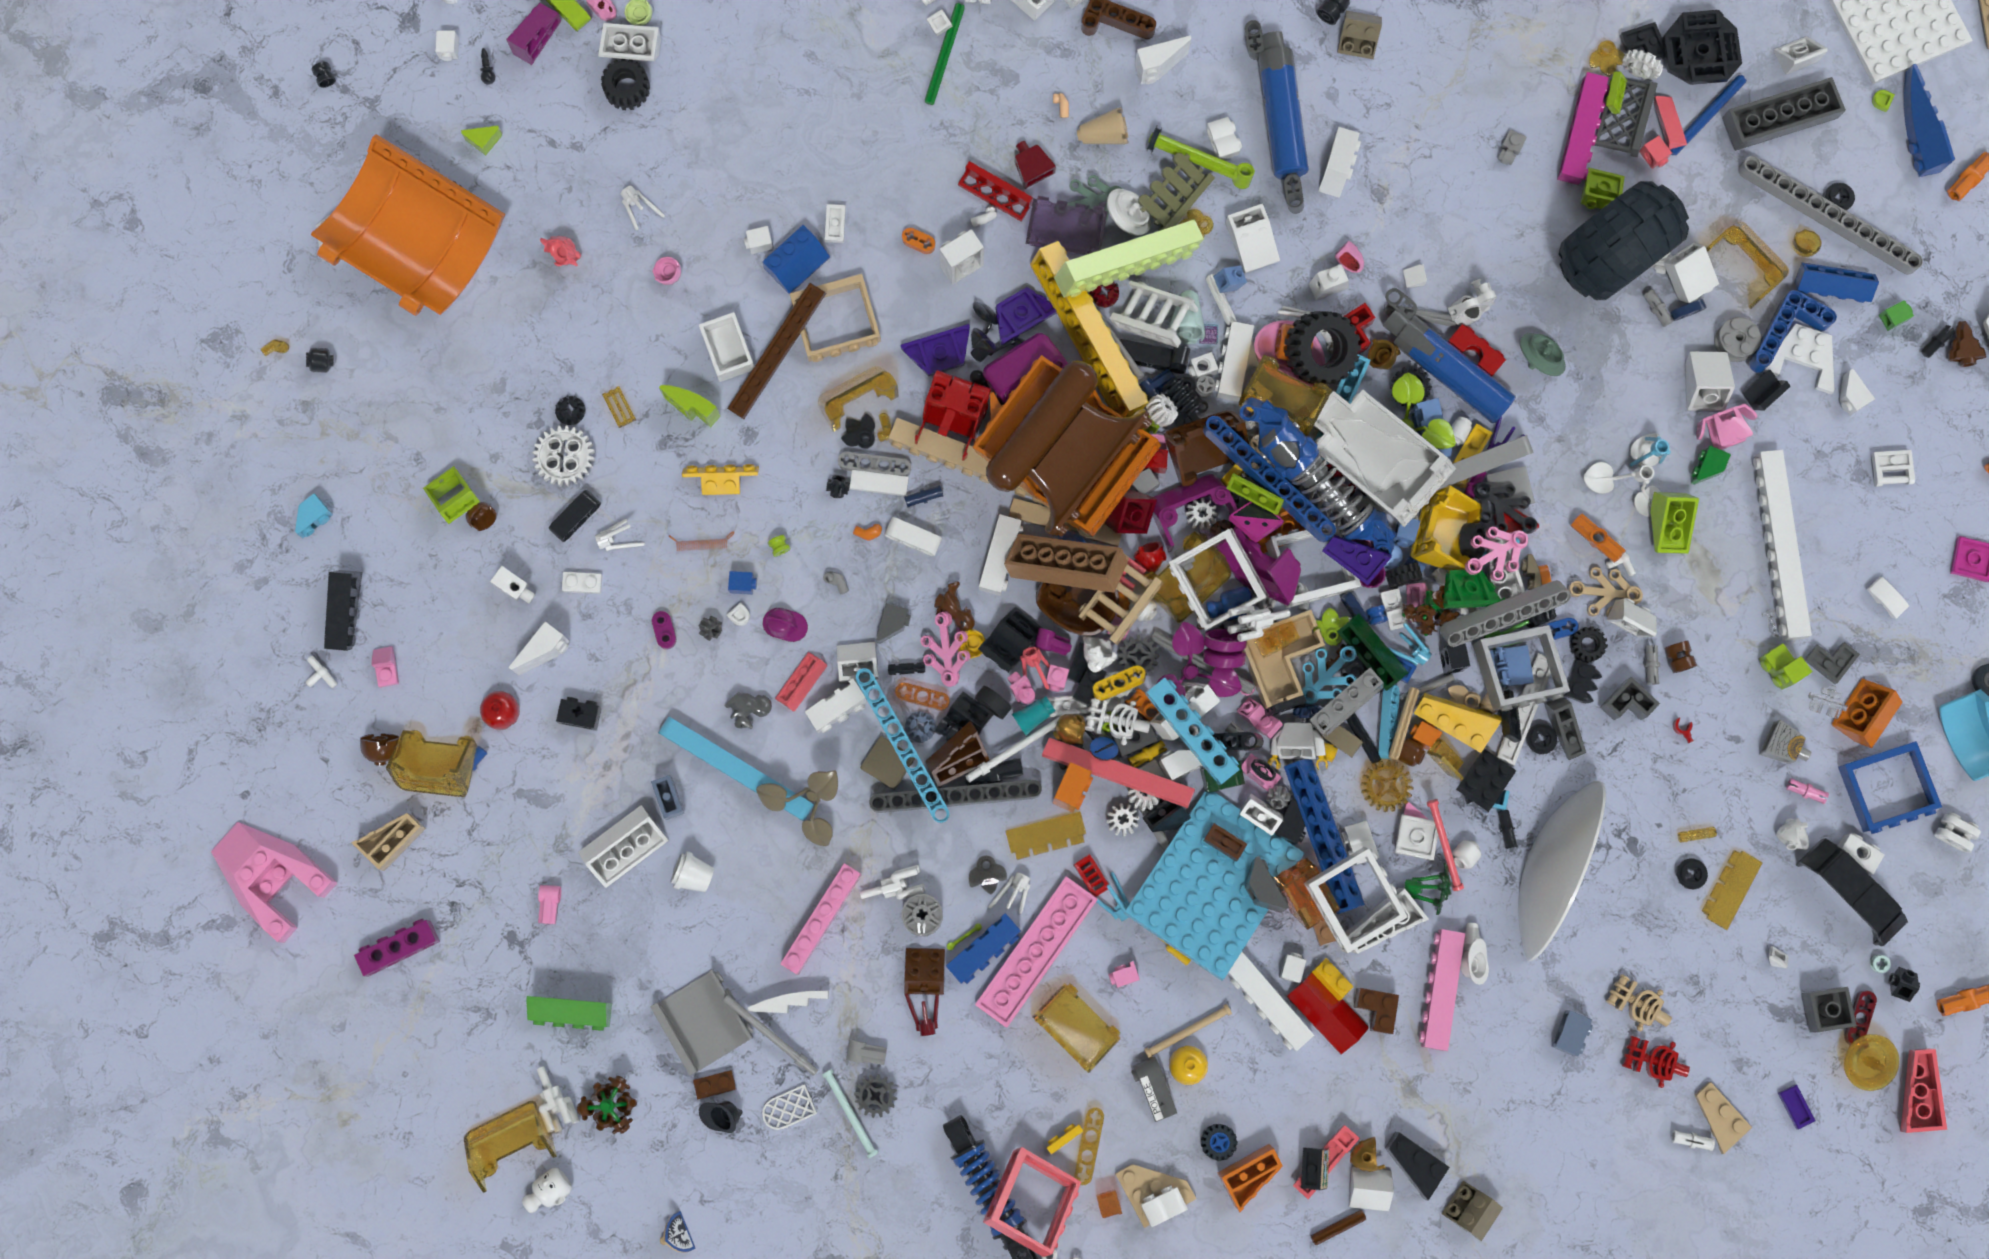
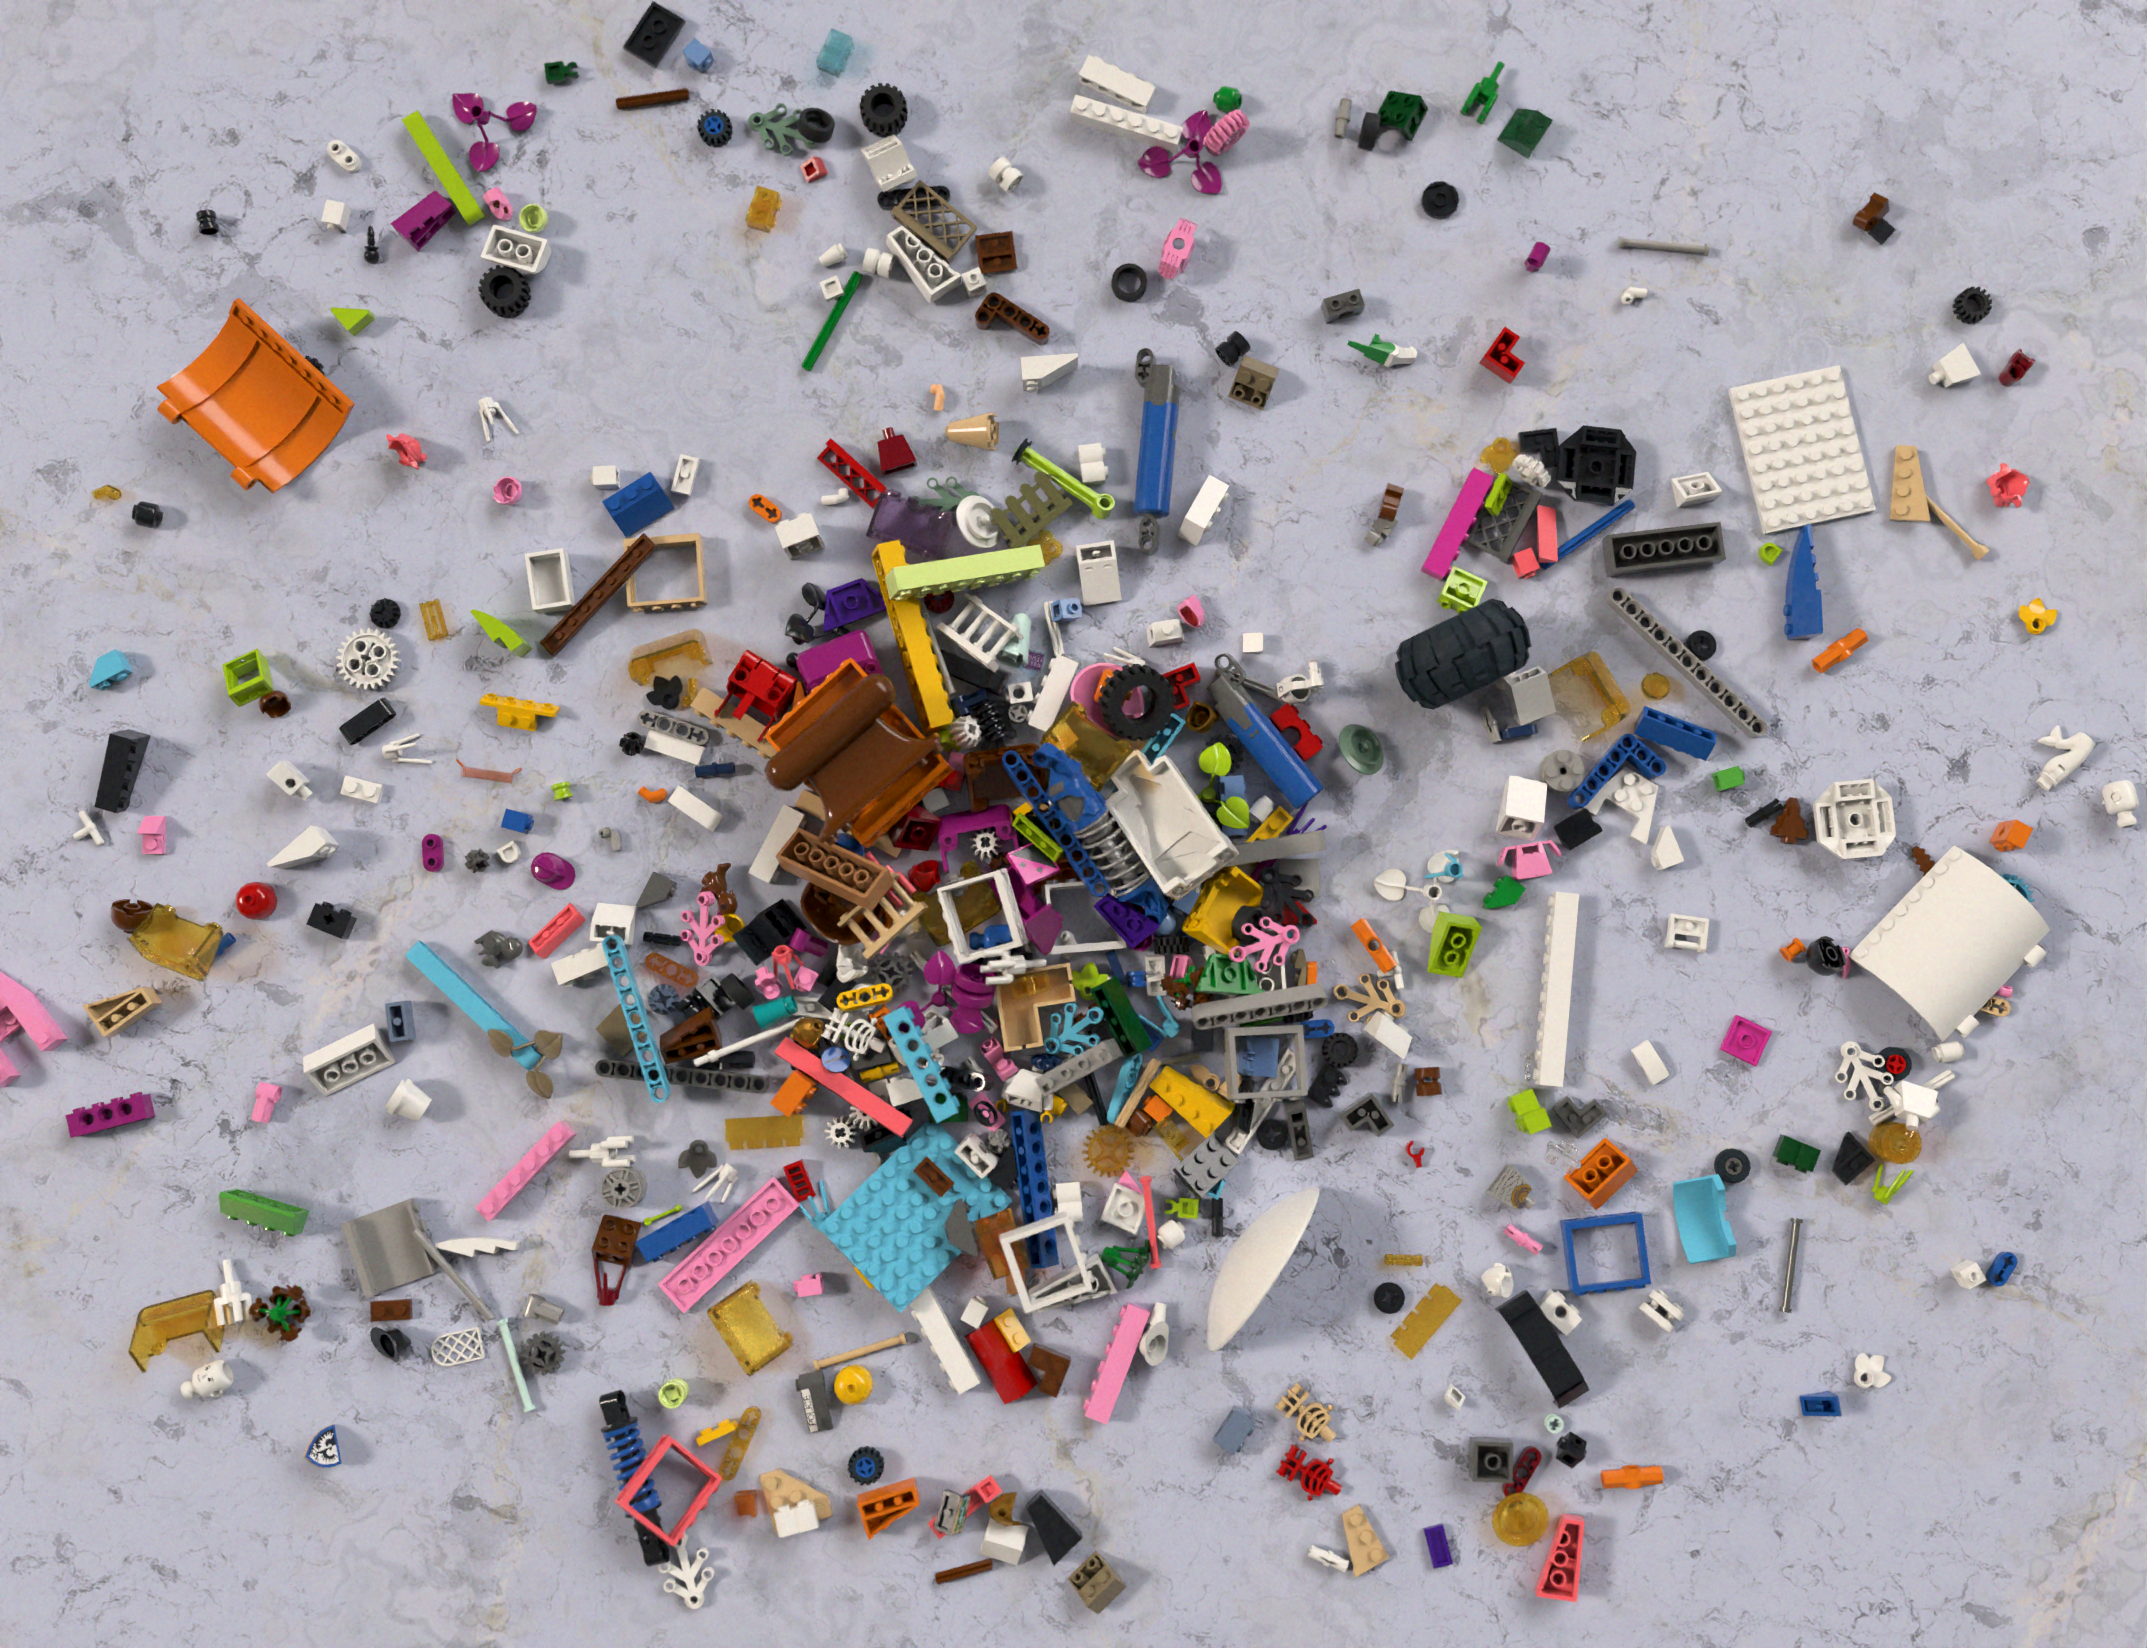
camera: 10 degrees right, 5 degrees up
(939, 351) = (761, 625): dark purple wing -> none
(1014, 1108) = (673, 1393): none -> yellowish green wheel
(1474, 826) = (1186, 1207): none -> lime plate
(1515, 119) = (1390, 502): none -> reddish brown leg

